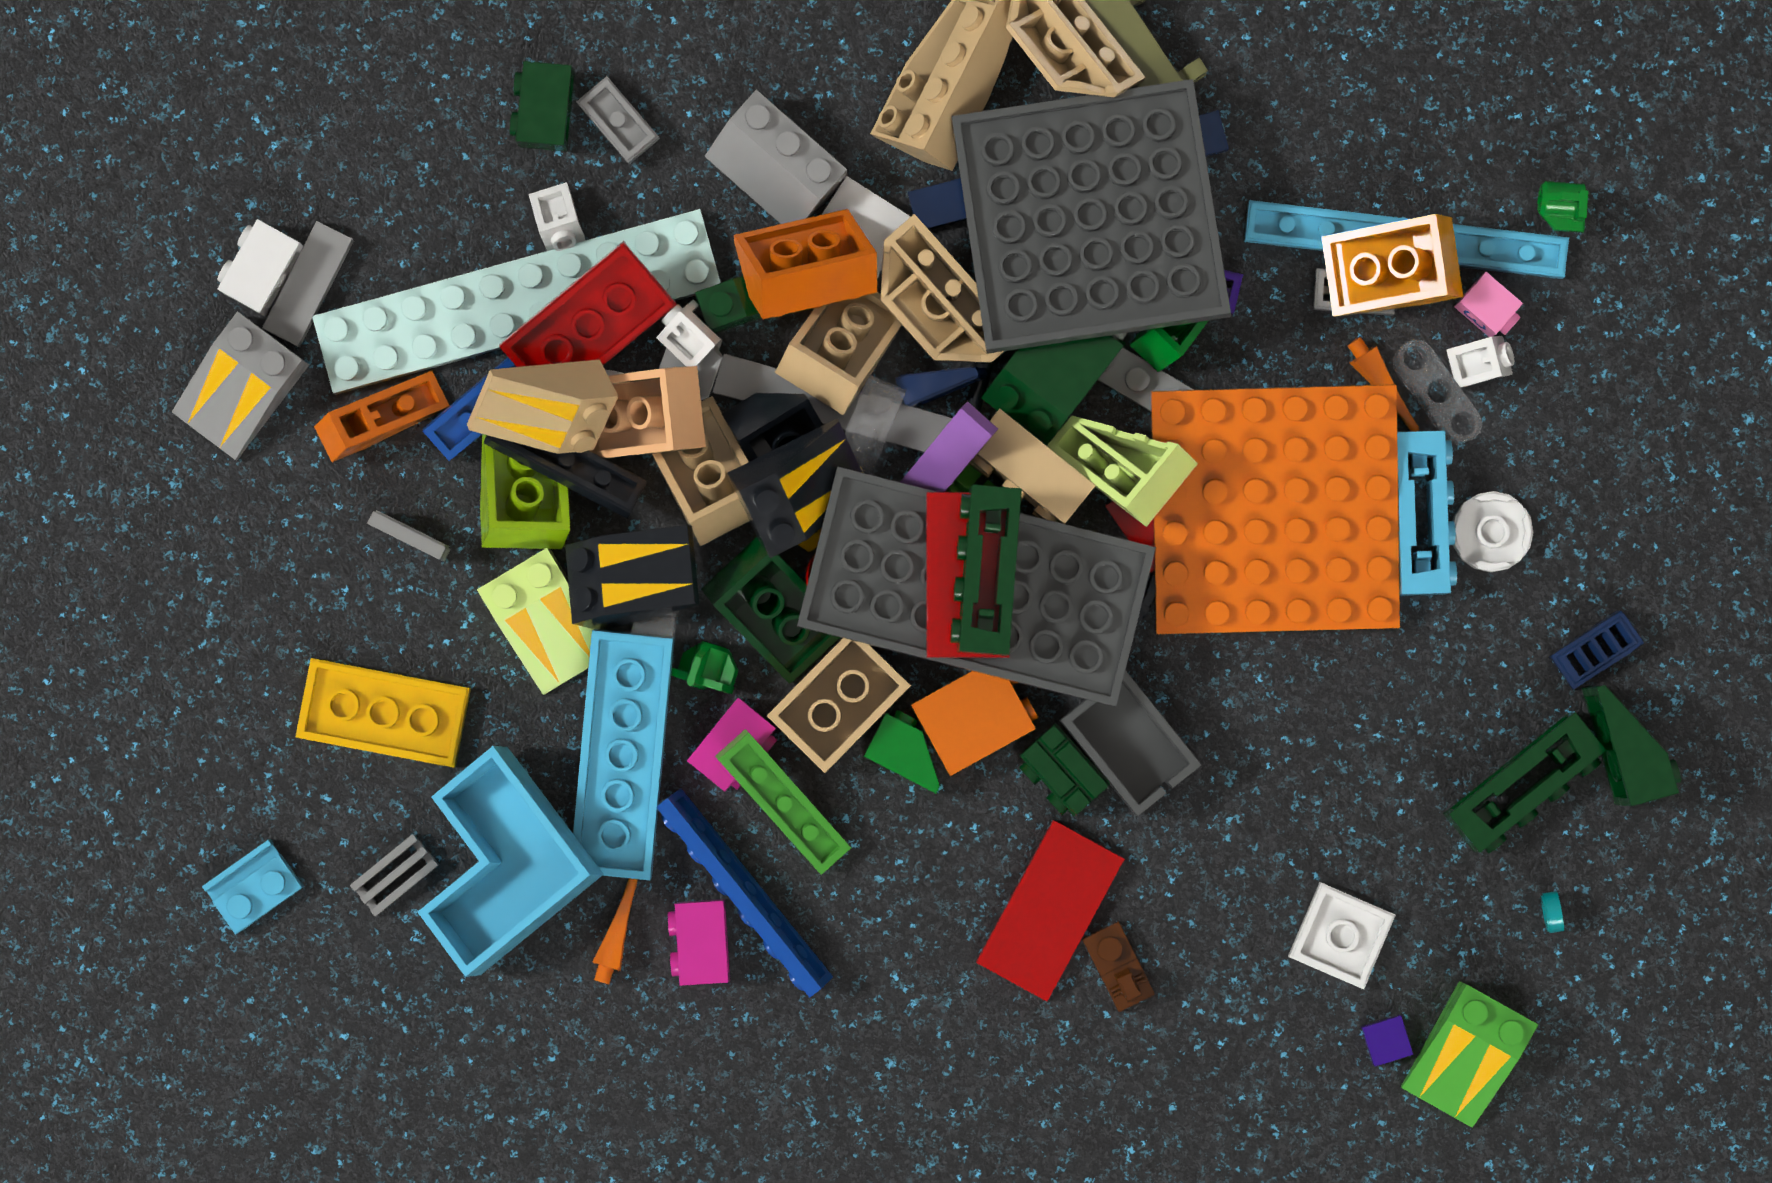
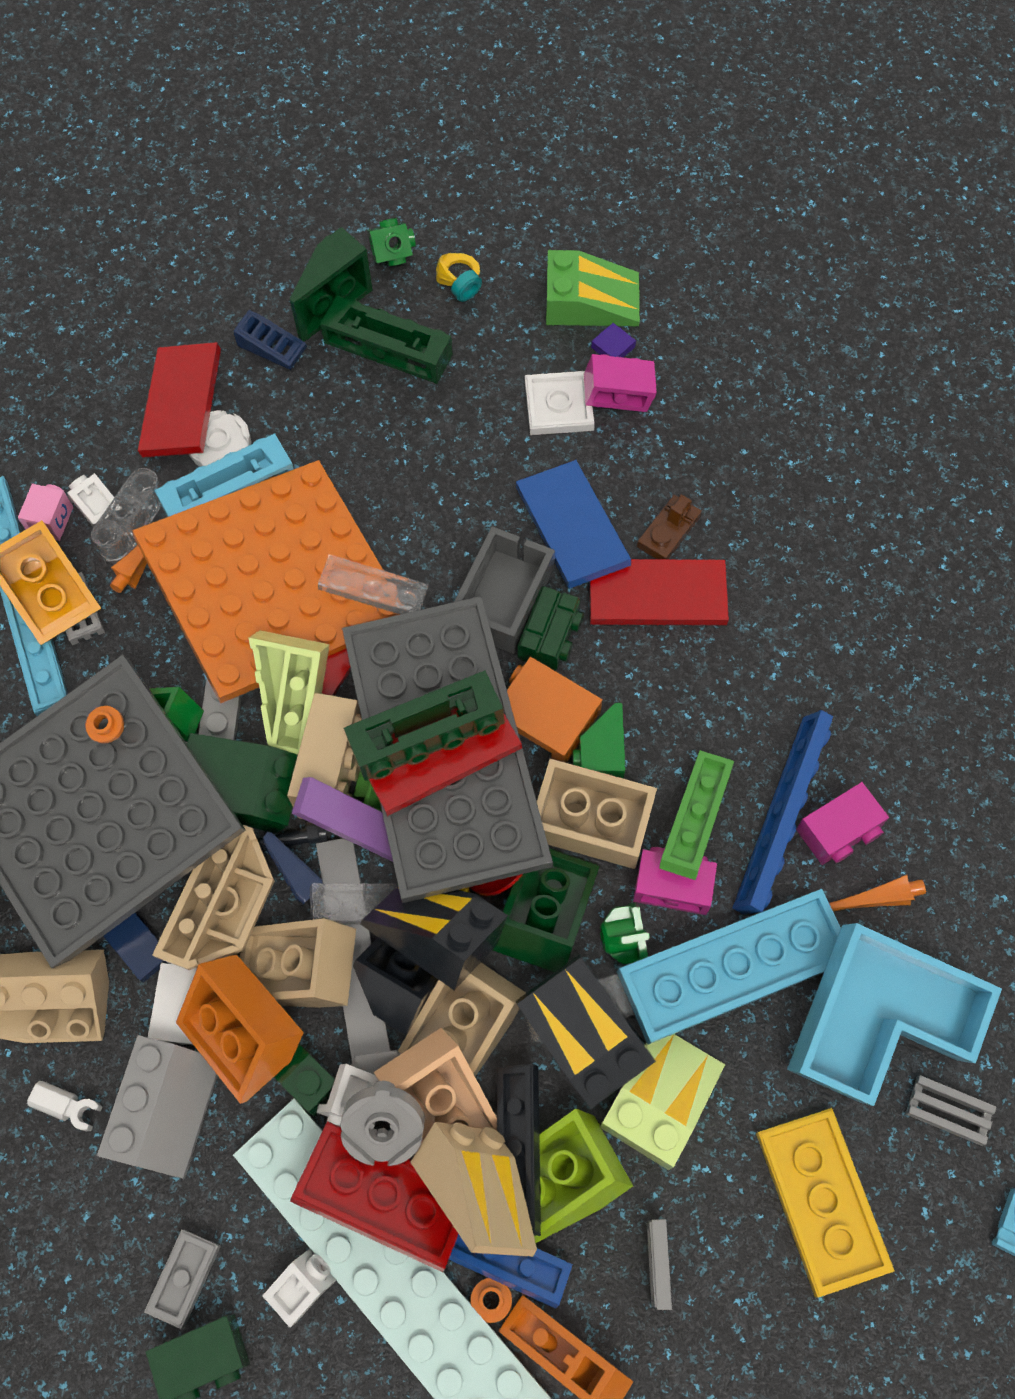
camera: 120 degrees left, 20 degrees down
(449, 367) = (505, 1300): none -> orange plate
(656, 356) = (387, 1104): none -> light grey plate
(827, 74) = (61, 1104): none -> white bar
(1157, 275) = (111, 731): none -> orange plate
(1176, 863) = (573, 524): none -> blue tile
(1199, 607) = (372, 586): none -> clear plate
(1322, 1011) = (619, 383): none -> dark pink brick
(1563, 511) = (179, 400): none -> red tile
(1603, 904) = (444, 276): none -> yellow piece
(1658, 853) = (380, 238): none -> green brick

